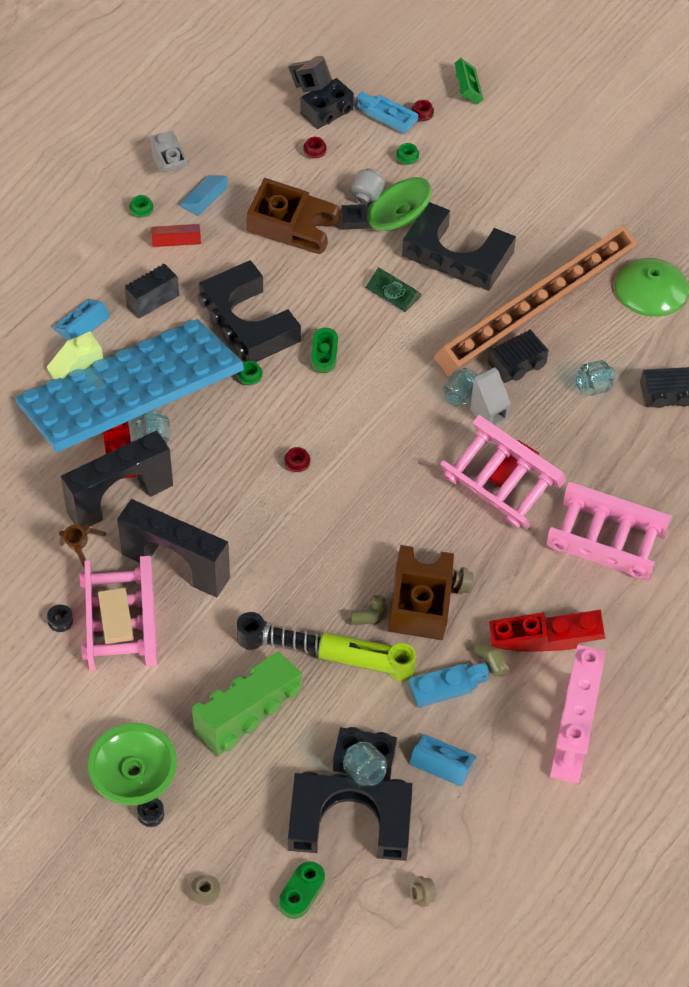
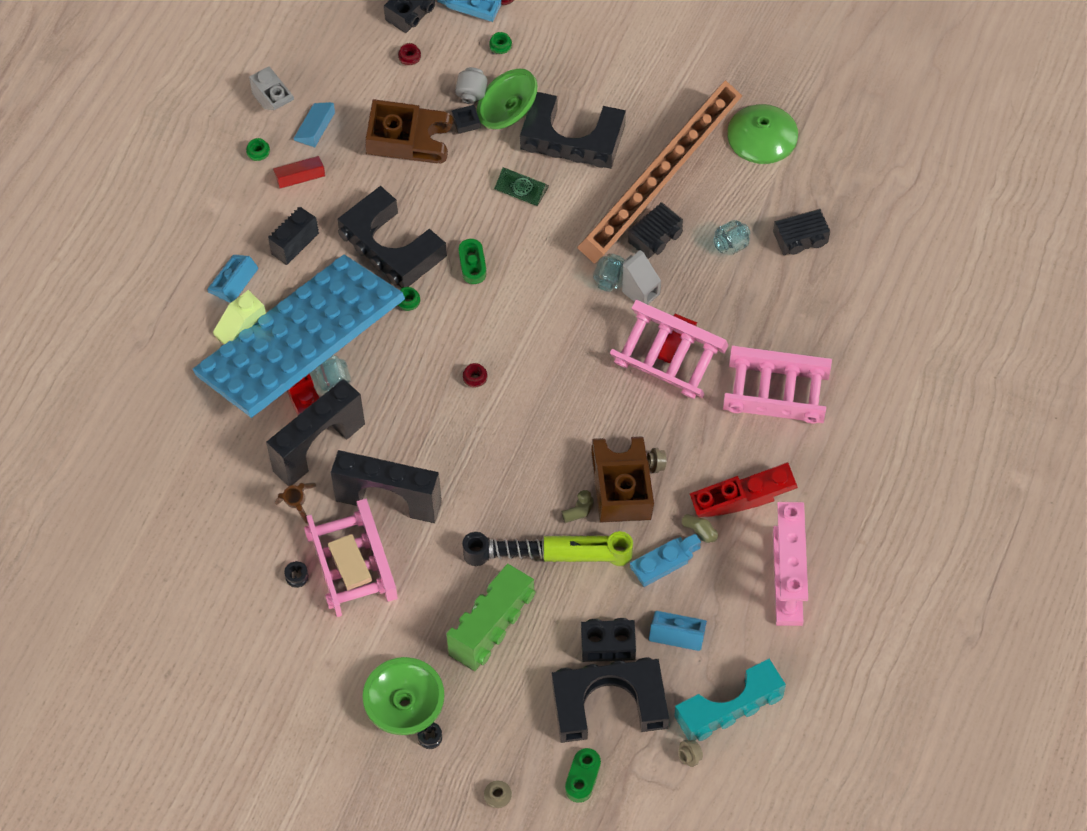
camera: 10 degrees left, 5 degrees up
(365, 764) = (613, 651): clear light blue head -> none
(445, 855) = (701, 717): none -> teal arch

